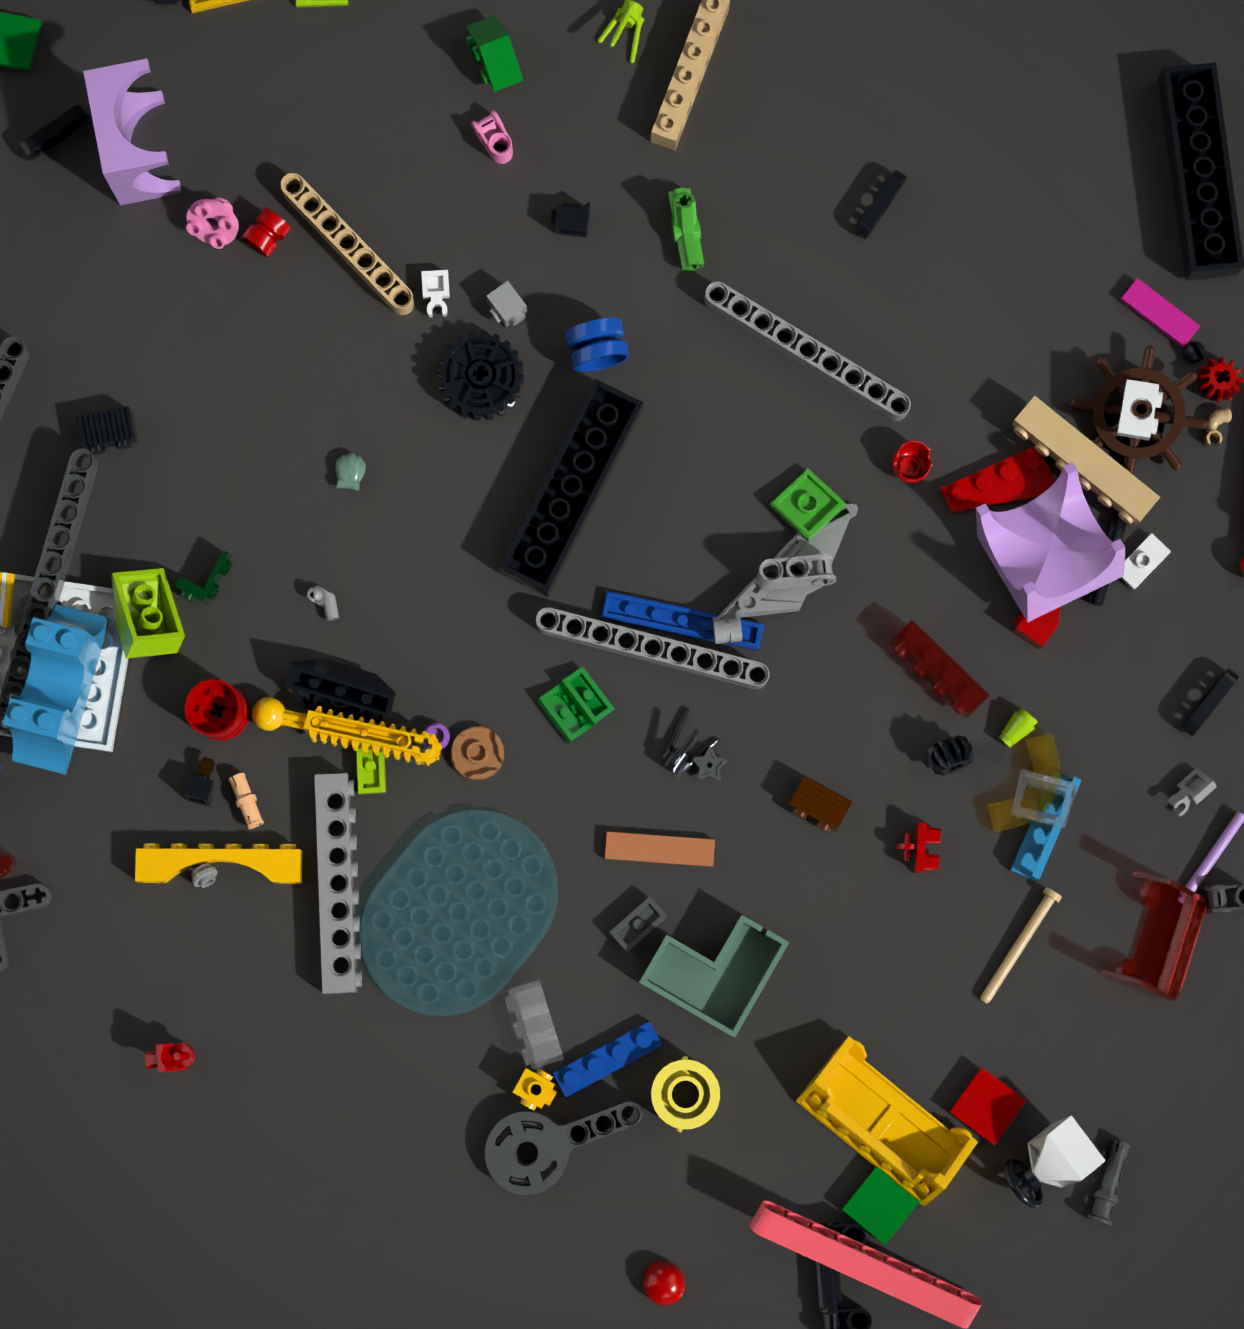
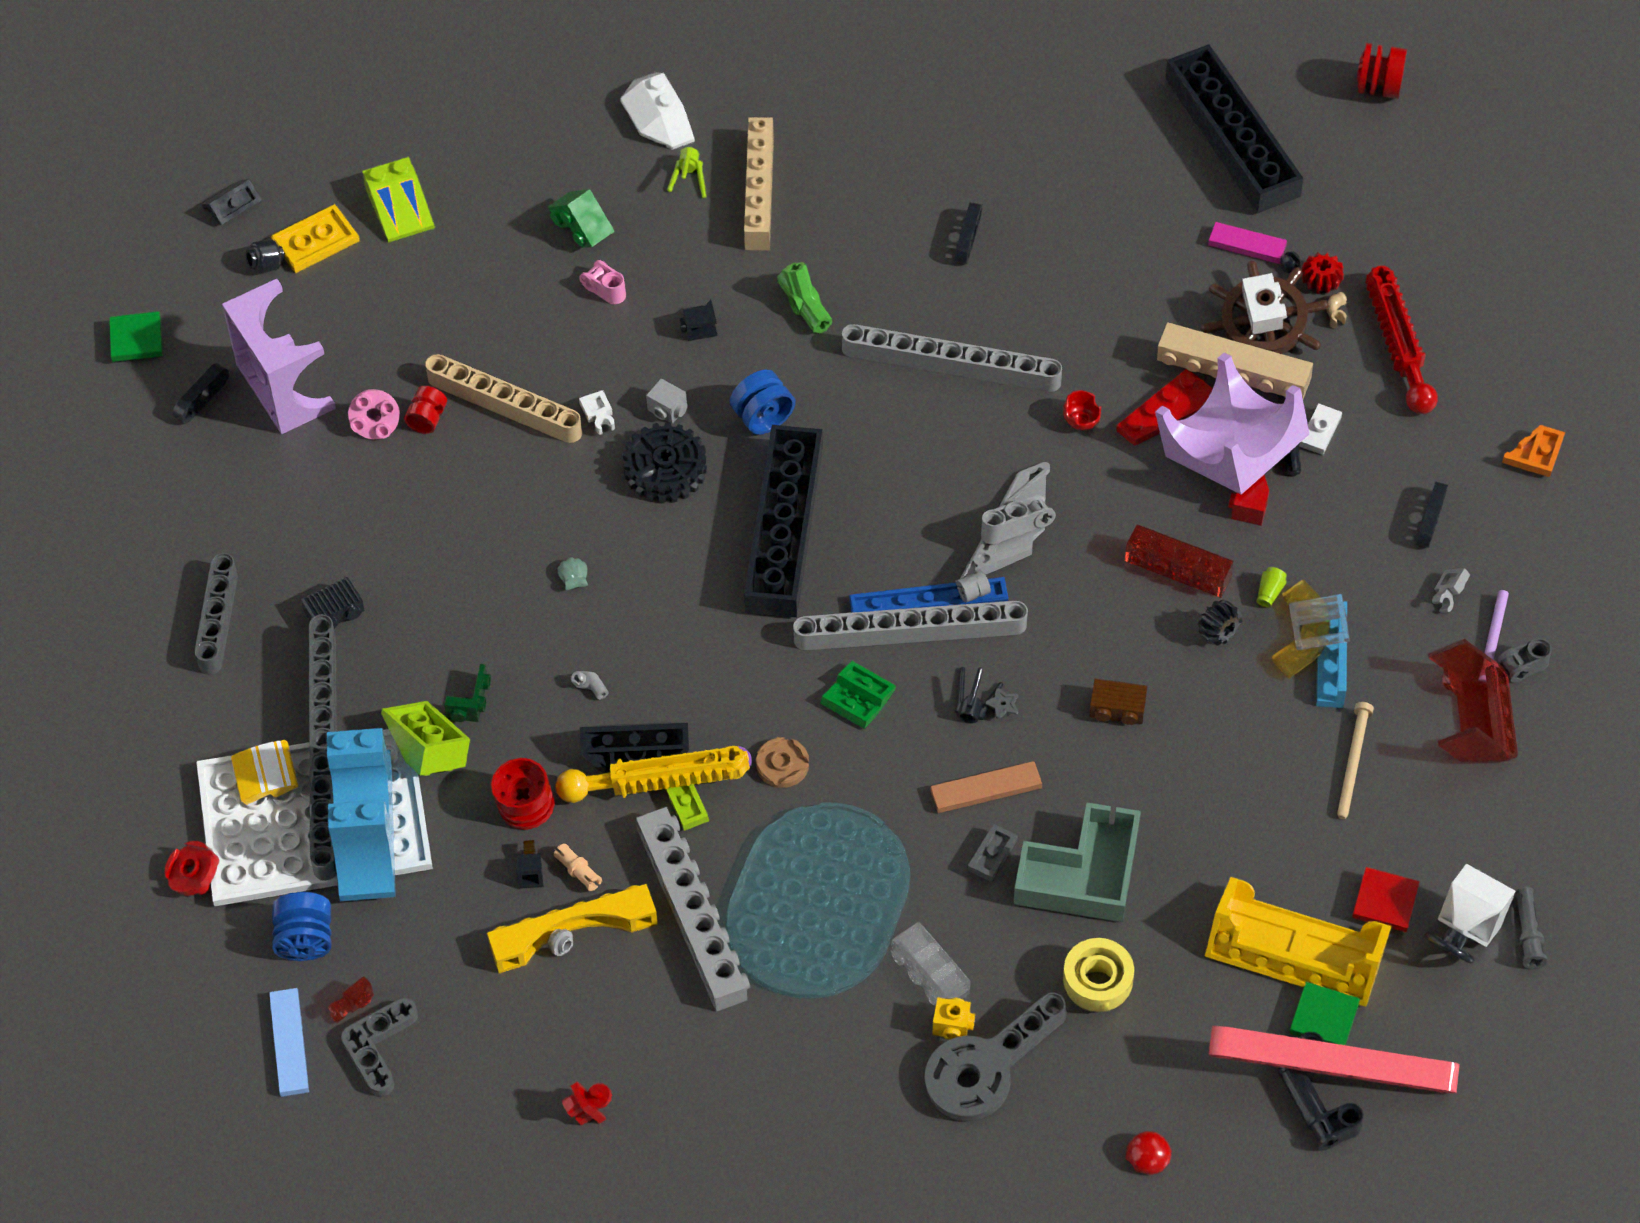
camera: 15 degrees left, 25 degrees down
(607, 1059) = (1012, 977): blue plate -> none
(808, 504) = (1003, 473): bright green tile -> none
(923, 835) = (1225, 698): red hips -> none

